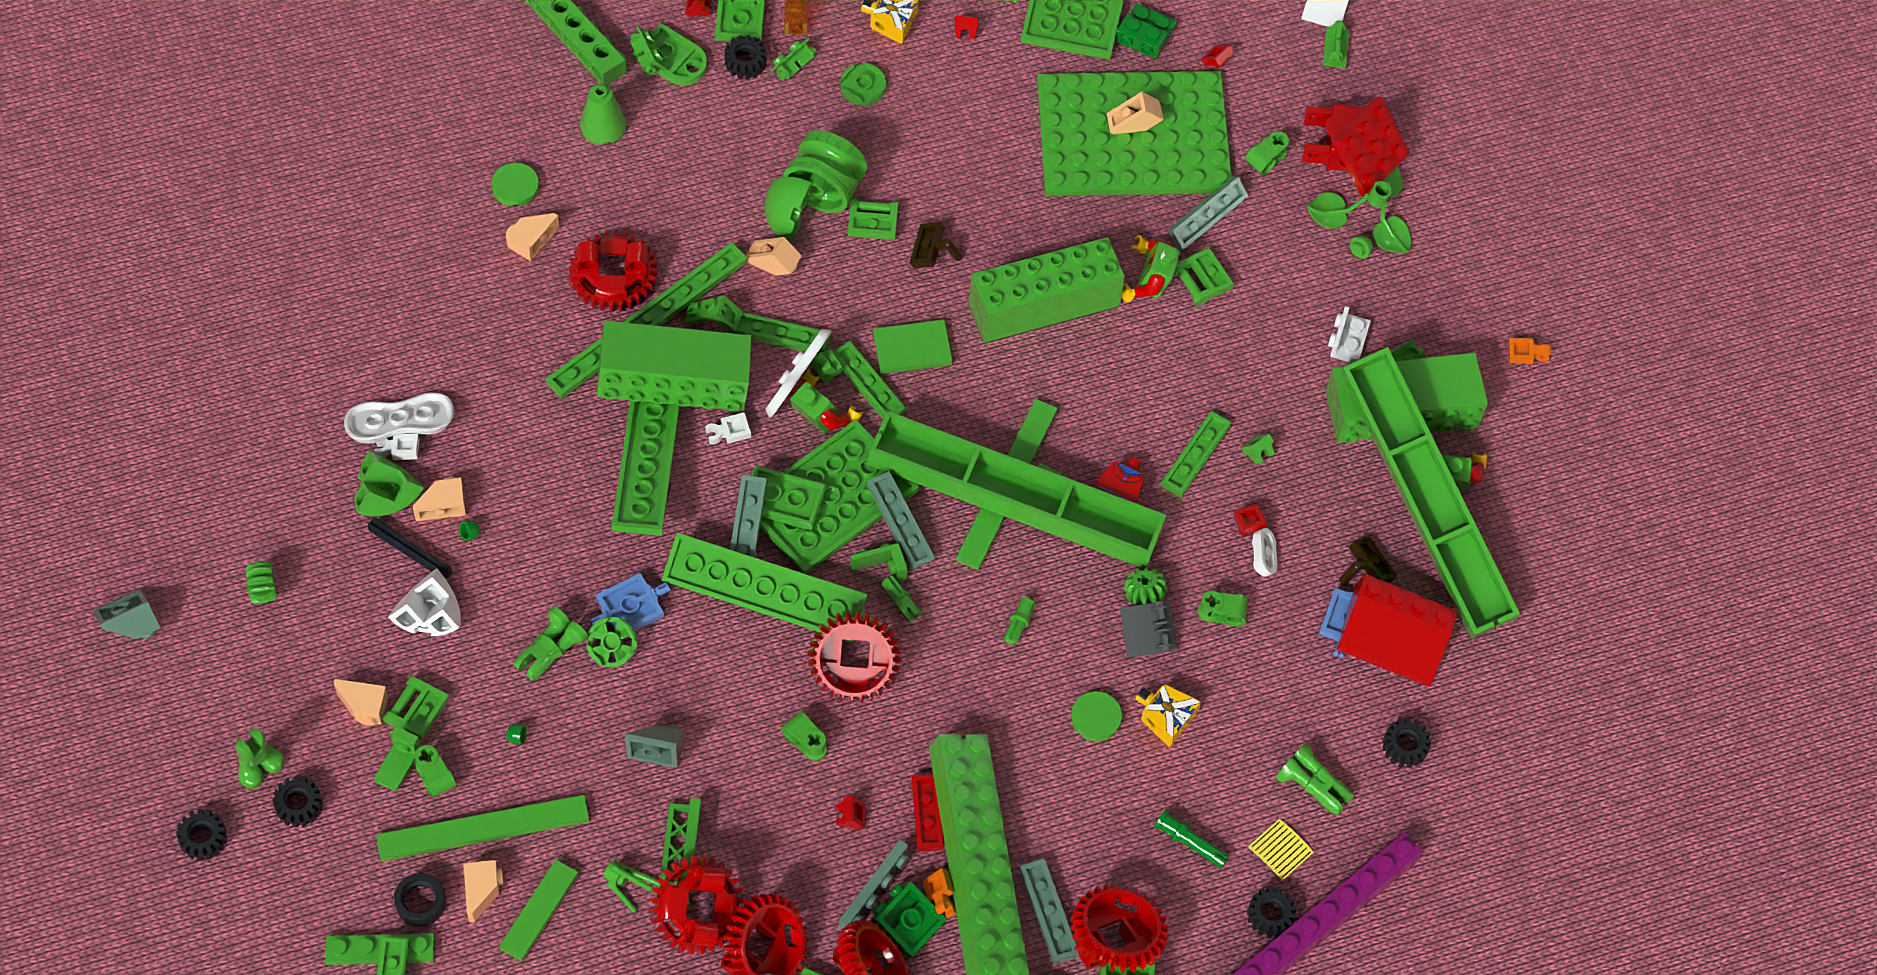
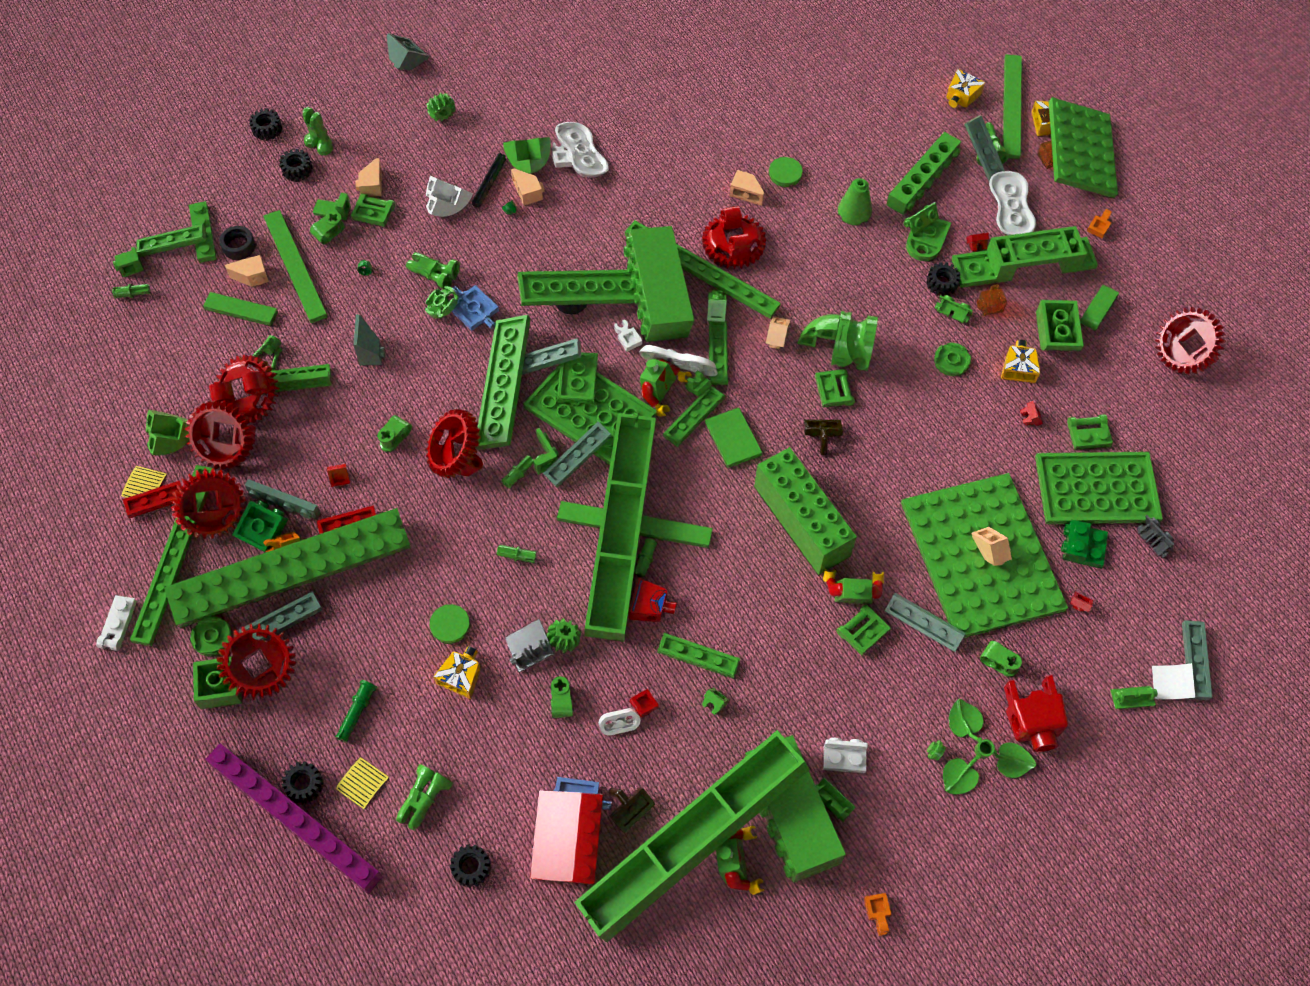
camera: 80 degrees right, 0 degrees up
(1371, 146) = (1028, 731): red plate -> none

